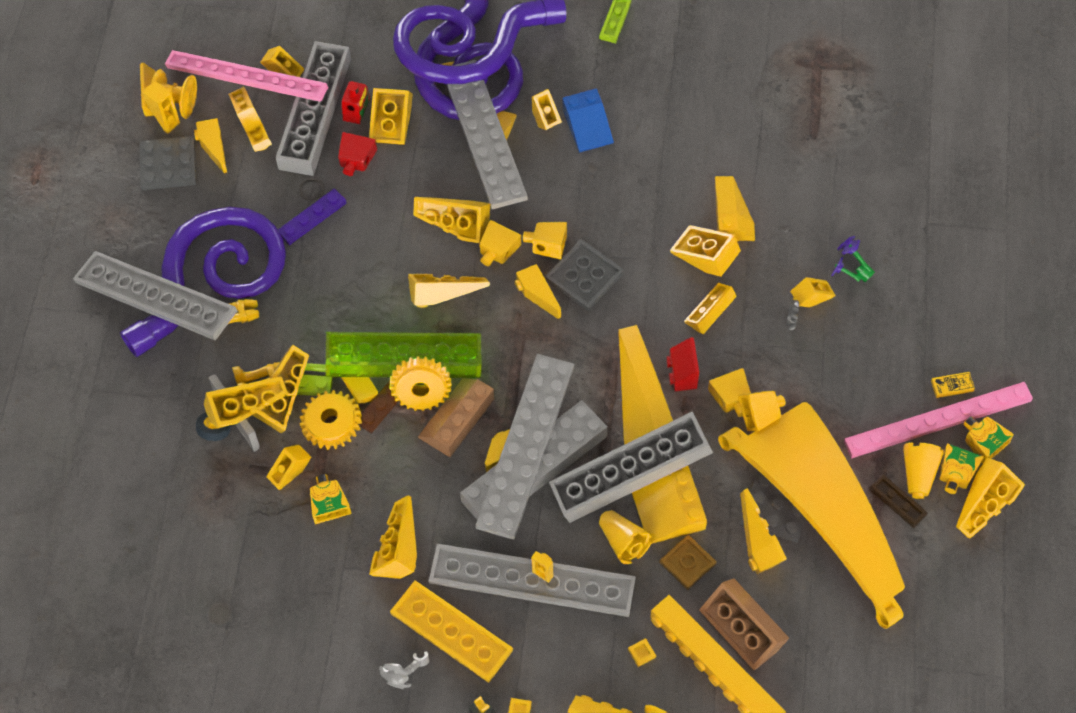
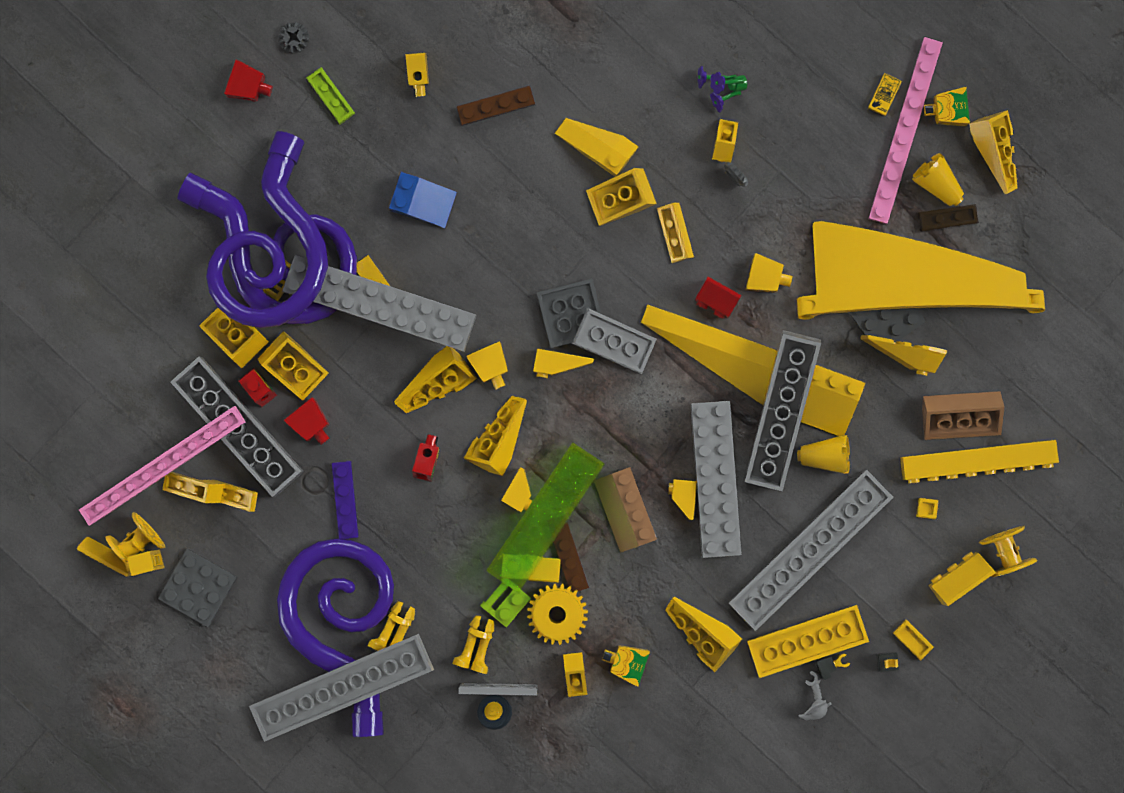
camera: 50 degrees left, 25 degrees up
(210, 139) = (202, 536): yellow slope -> none
(239, 402) = (509, 687): yellow wedge -> none
(281, 62) = (166, 423): yellow slope -> none
(291, 370) = (506, 639): yellow wedge -> none
(382, 67) = (236, 340): none -> yellow slope
(385, 246) = (425, 466): none -> red torso
(412, 318) = (519, 492): none -> yellow slope
(435, 379) = (583, 523): yellow gear -> none
(441, 660) = (827, 665): none -> pearl dark grey piece
(525, 447) = (702, 478): light grey plate -> none
(542, 566) = (815, 538): yellow plate -> none
(545, 110) = (393, 232): yellow slope -> none
(548, 239) = (517, 320): yellow torso -> none
(587, 316) = (614, 341): none -> light grey tile
(681, 55) = (417, 63): none -> yellow torso
(688, 562) = (880, 418): pearl gold tile -> none
(701, 125) = (496, 105): none -> reddish brown plate
(760, 409) = (800, 266): yellow torso -> none
(958, 468) = (959, 150): torso -> none

